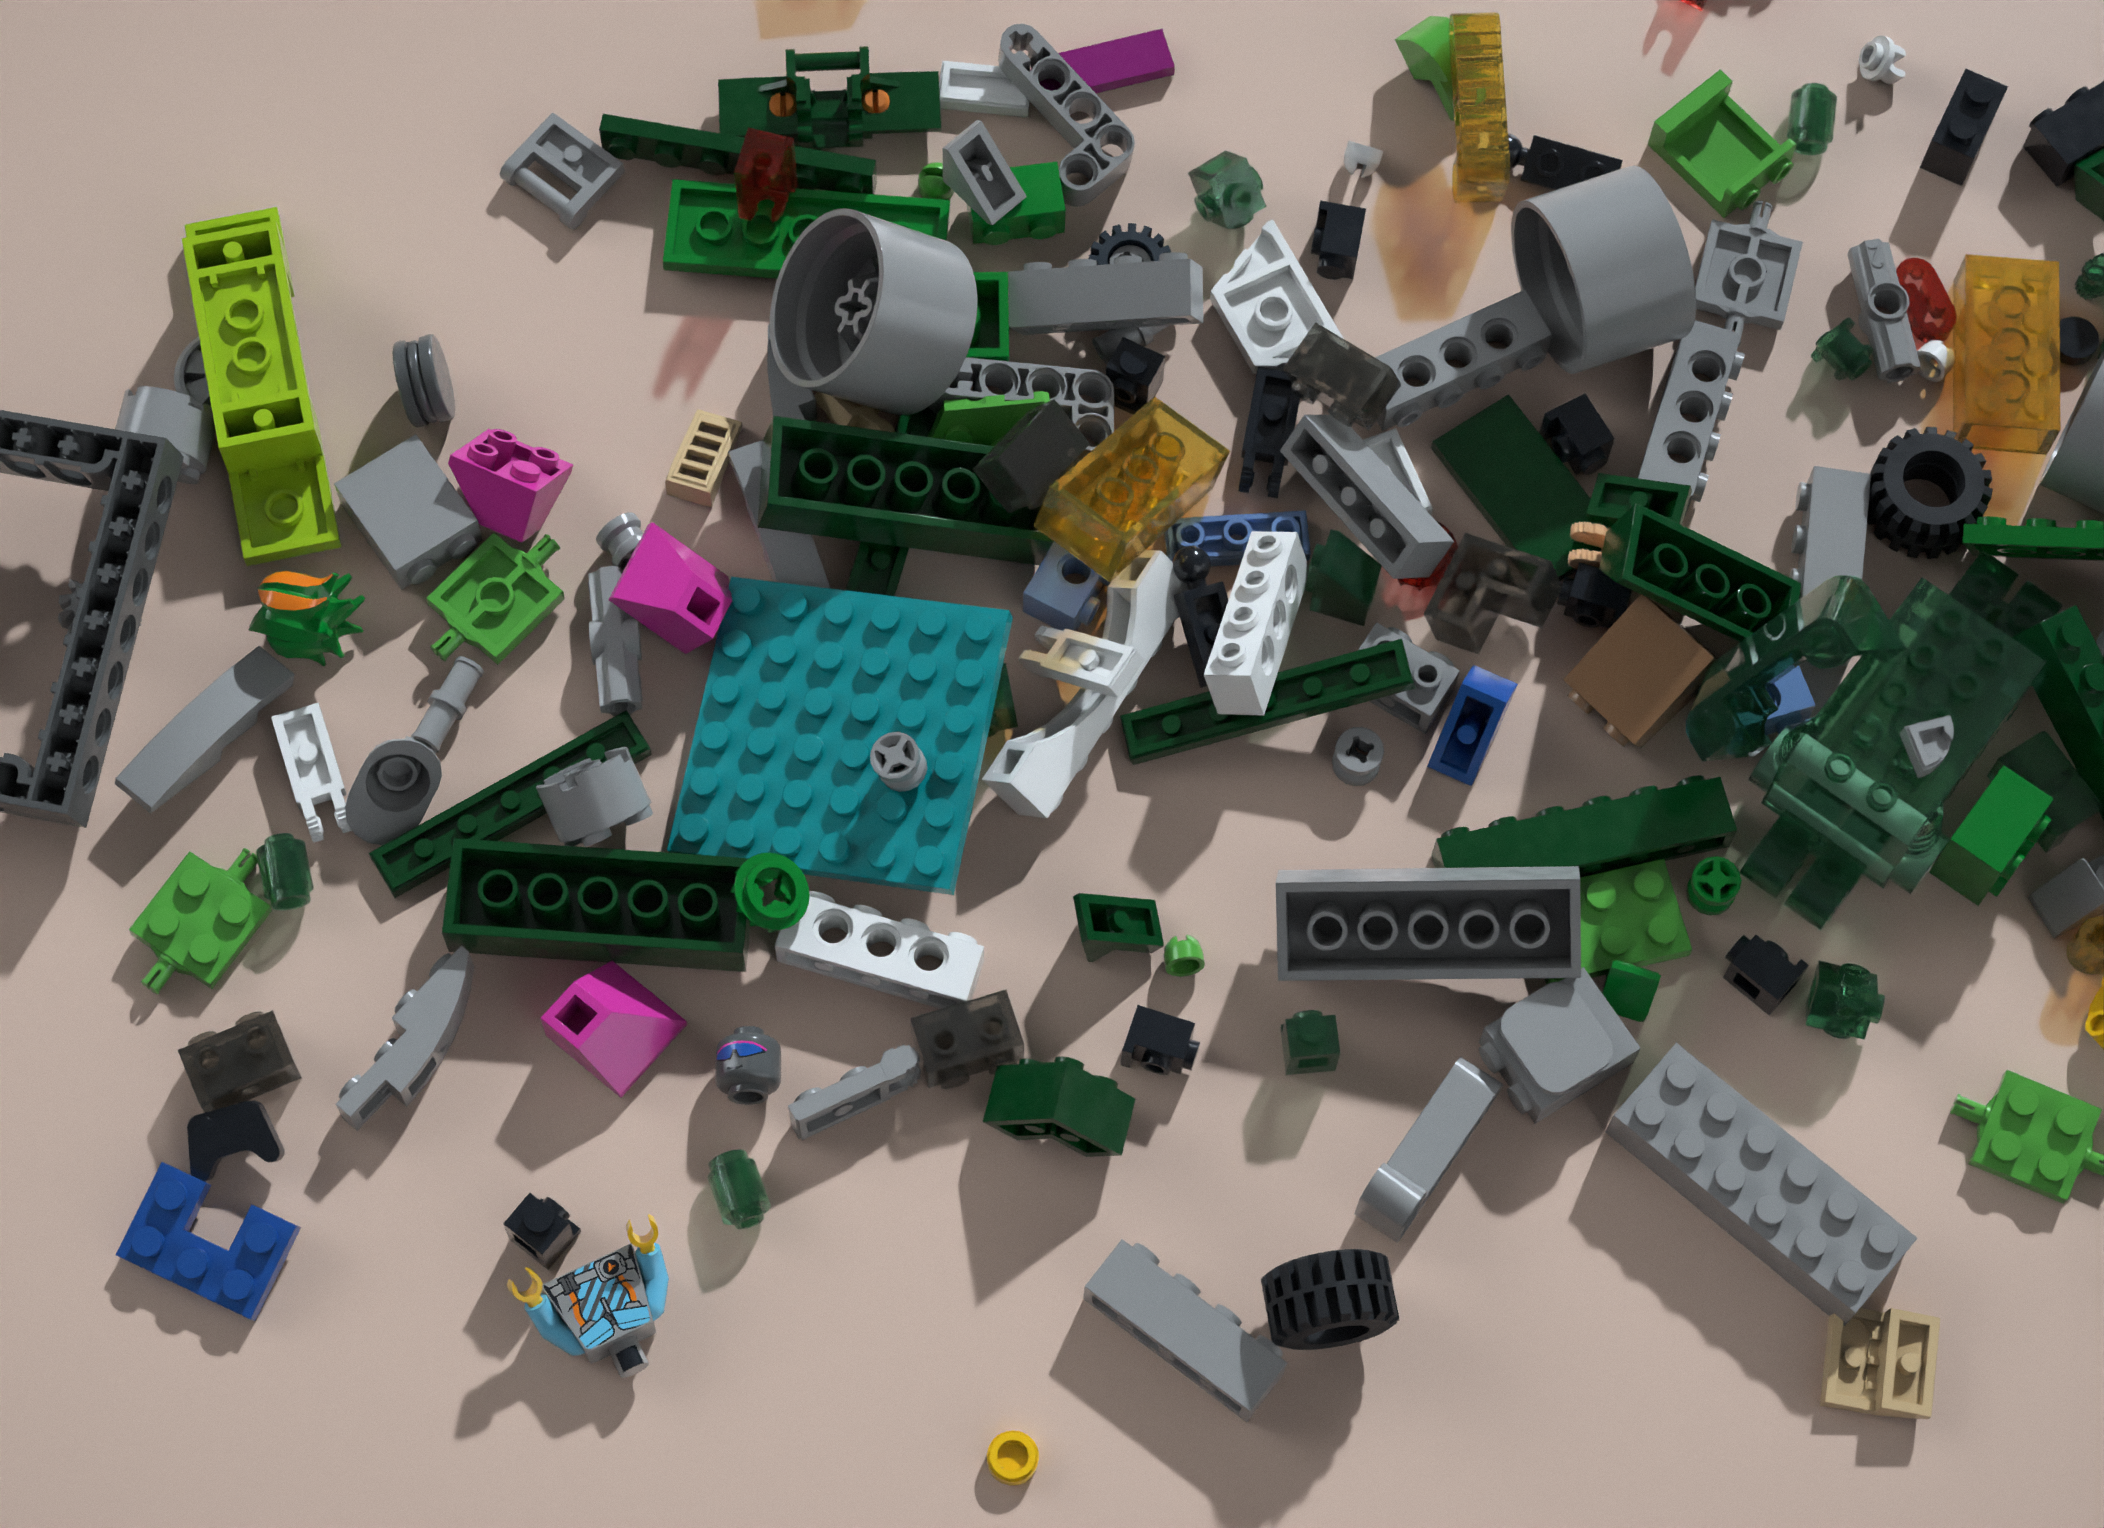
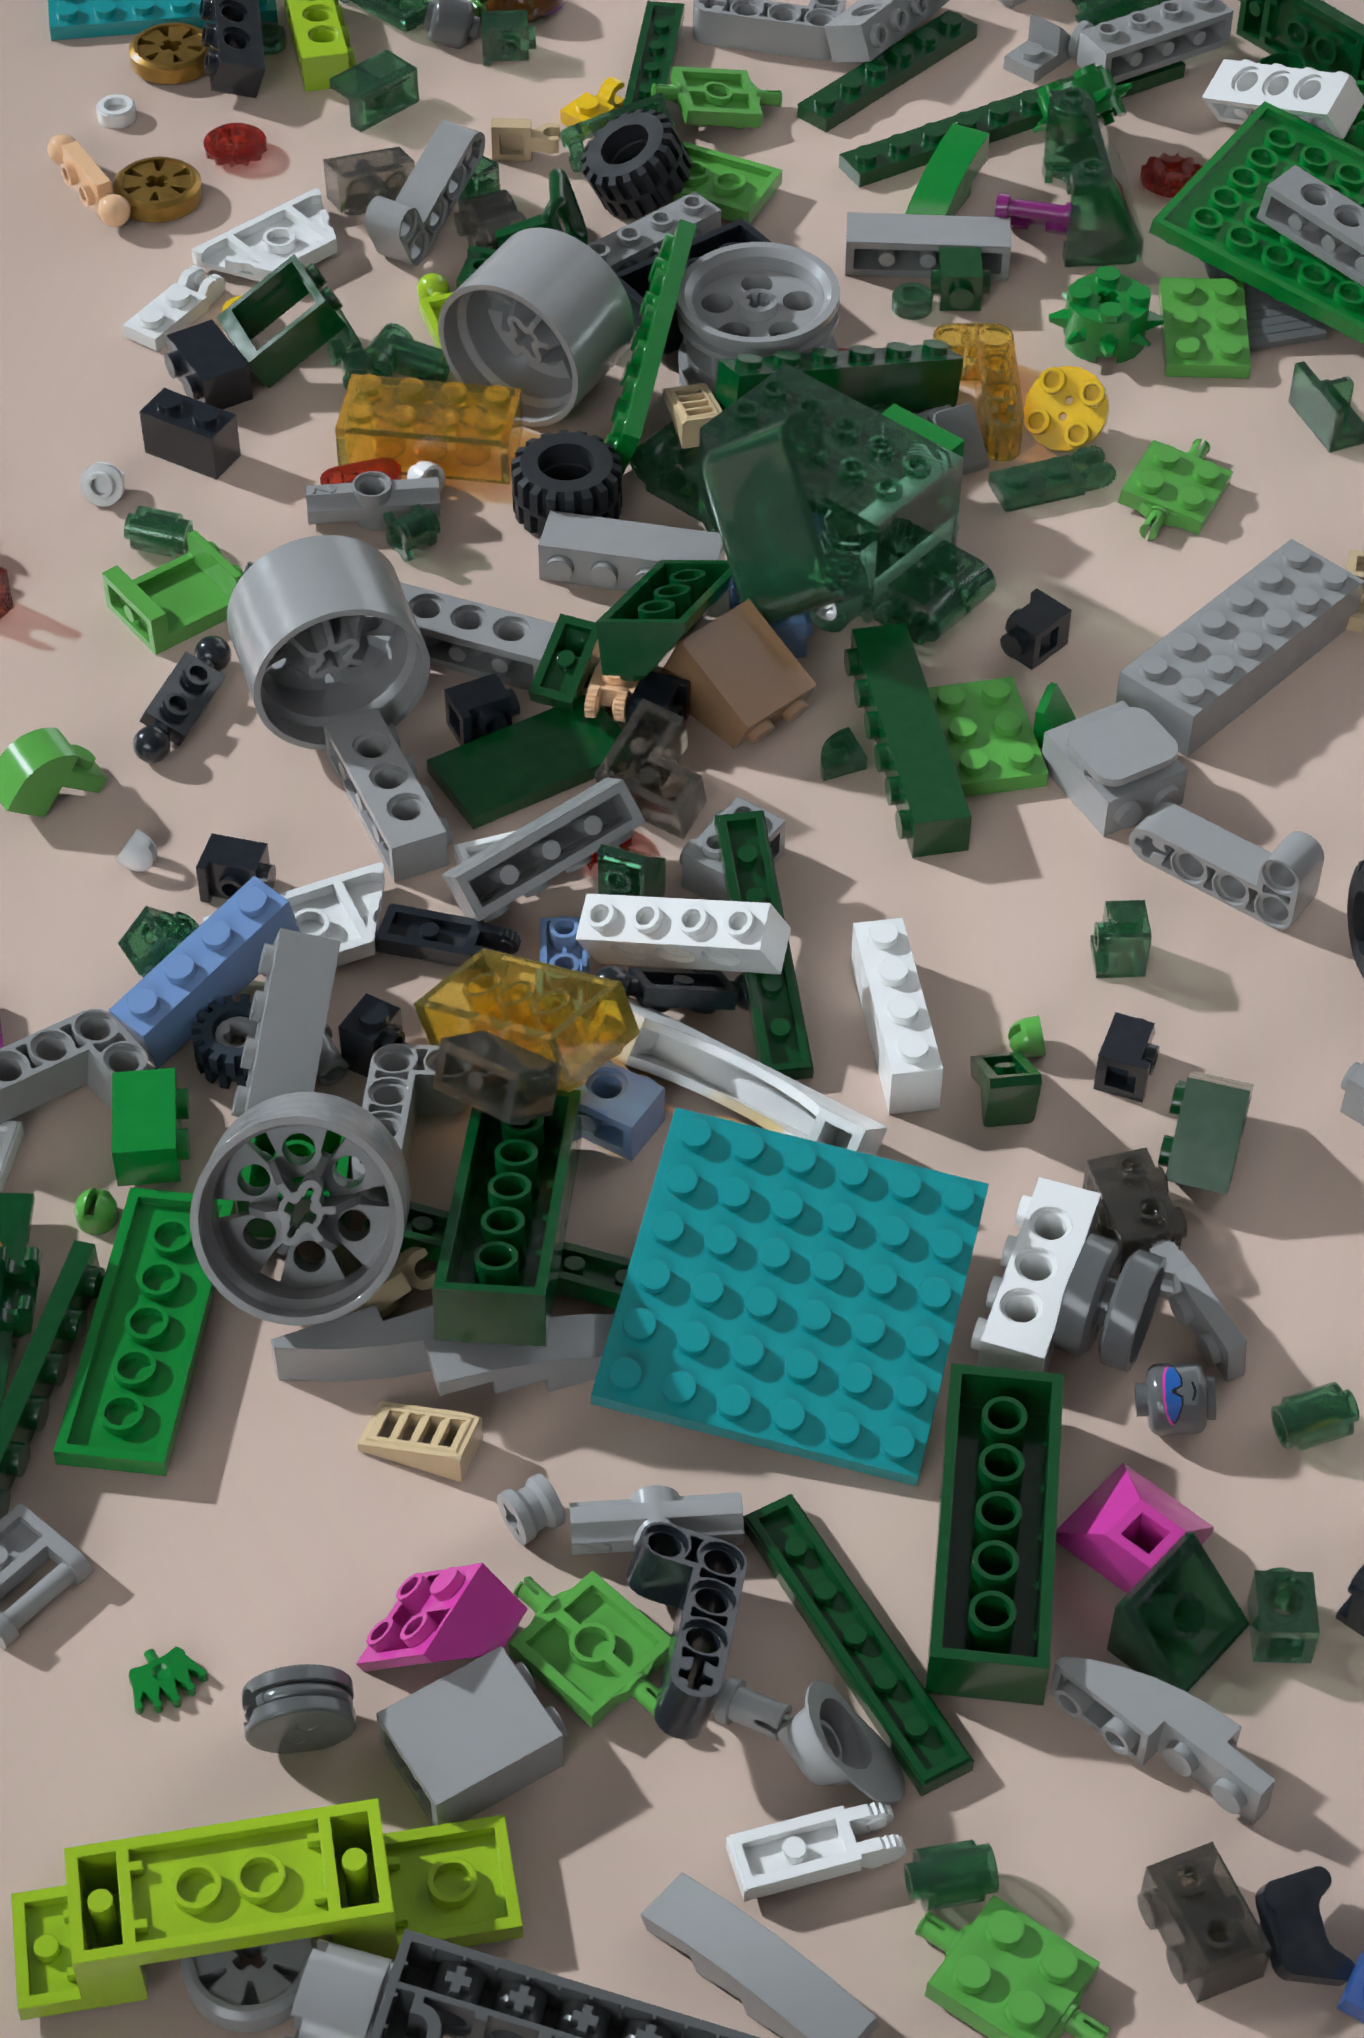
camera: 85 degrees left, 20 degrees down
(305, 614) = (613, 1836): green hair -> none
(474, 293) = (163, 1676): none -> green piece
(486, 657) = (705, 1584): none -> black beam
(511, 1129) = (1277, 1635): none -> clear green brick
(519, 1057) = (1177, 1617): none -> clear green slope
(594, 797) = (871, 1521): light grey brick -> none
(673, 590) = (612, 1444): dark pink slope -> none
(765, 172) = (83, 1326): clear red hinge -> none
(790, 890) = (994, 1343): green gear -> none
(836, 1002) = (1101, 1299): none -> dark grey wheel
(891, 752) = (850, 1193): light grey wheel -> none
(980, 174) = (126, 1124): light grey slope -> none
(981, 420) = (431, 1147): bright green wing -> none
(1083, 660) = (719, 1070): white hinge -> none
(1192, 224) = (205, 967): none -> medium blue brick
(1194, 827) = (896, 1016): none -> white brick
(1341, 377) = (414, 850): clear smoke brick -> none
(1357, 768) = (814, 893): light grey wheel -> none
(1428, 923) = (1011, 826): light grey brick -> none
(1472, 724) = (786, 792): blue slope -> none
(1479, 107) = (121, 725): clear yellow beam -> none
(1562, 781) = (841, 755): none -> clear green tile
(1718, 875) = (949, 657): green wheel -> none
(1843, 1000) = (1065, 574): clear green brick -> none
(1928, 743) = (872, 430): light grey tile -> none
(1988, 606) = (690, 409): none -> tan slope
(2031, 999) = (1051, 479): none -> clear green hinge

